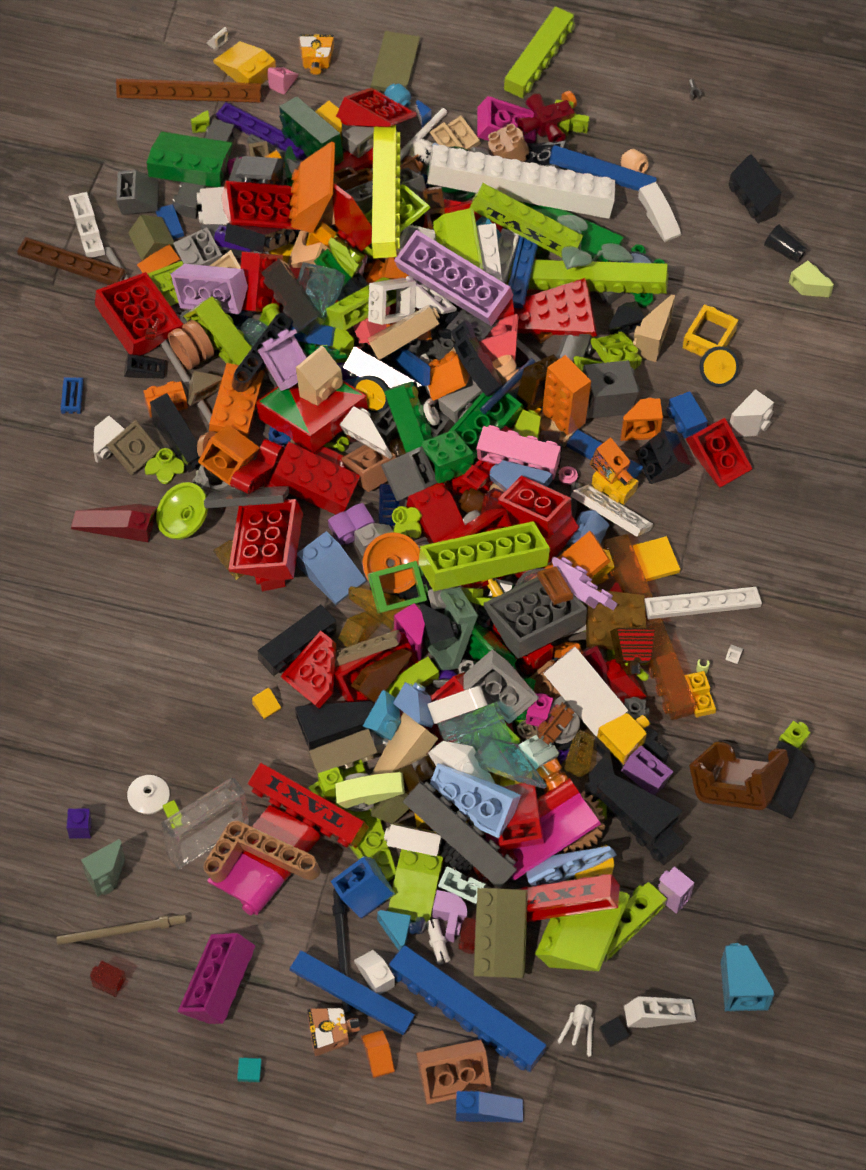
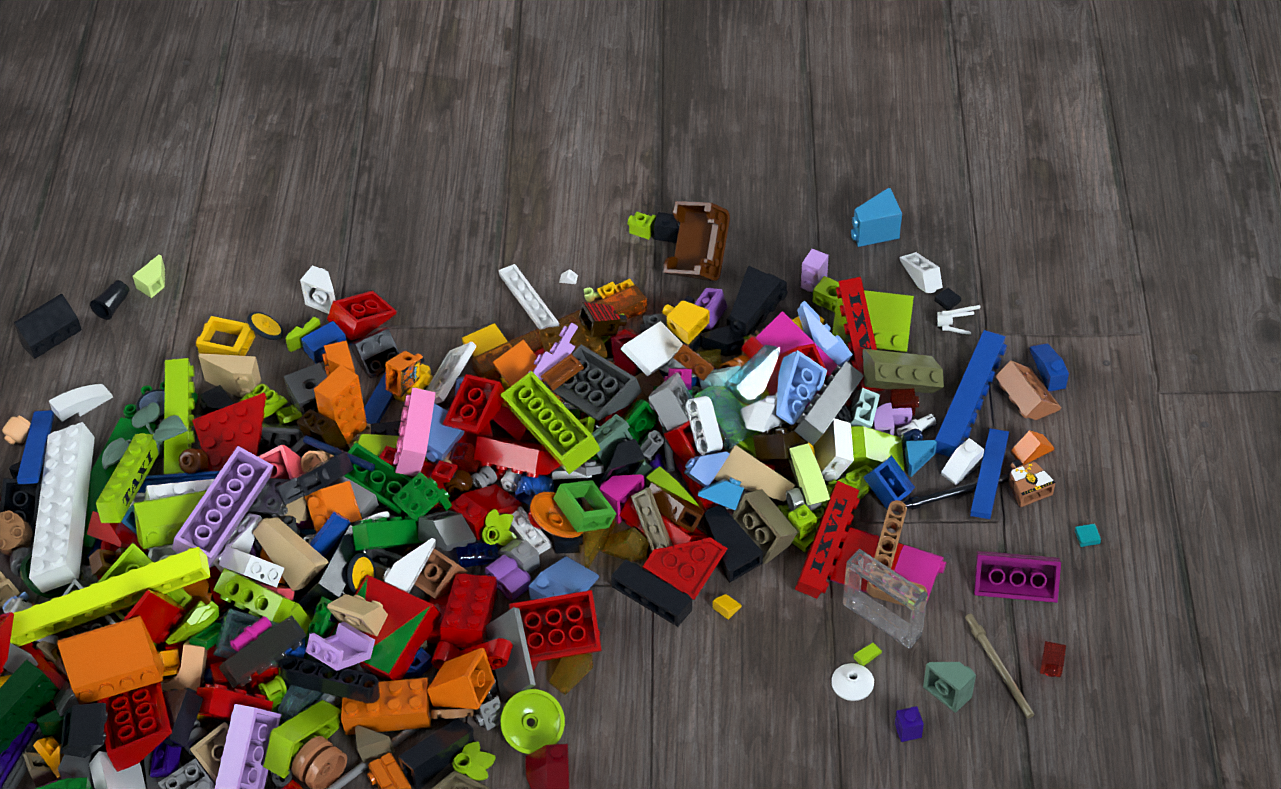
camera: 100 degrees left, 10 degrees down
(309, 286) = (250, 634): none -> dark pink pin
(539, 277) = (193, 460): none -> reddish brown head
(706, 404) = (294, 338): none -> lime slope

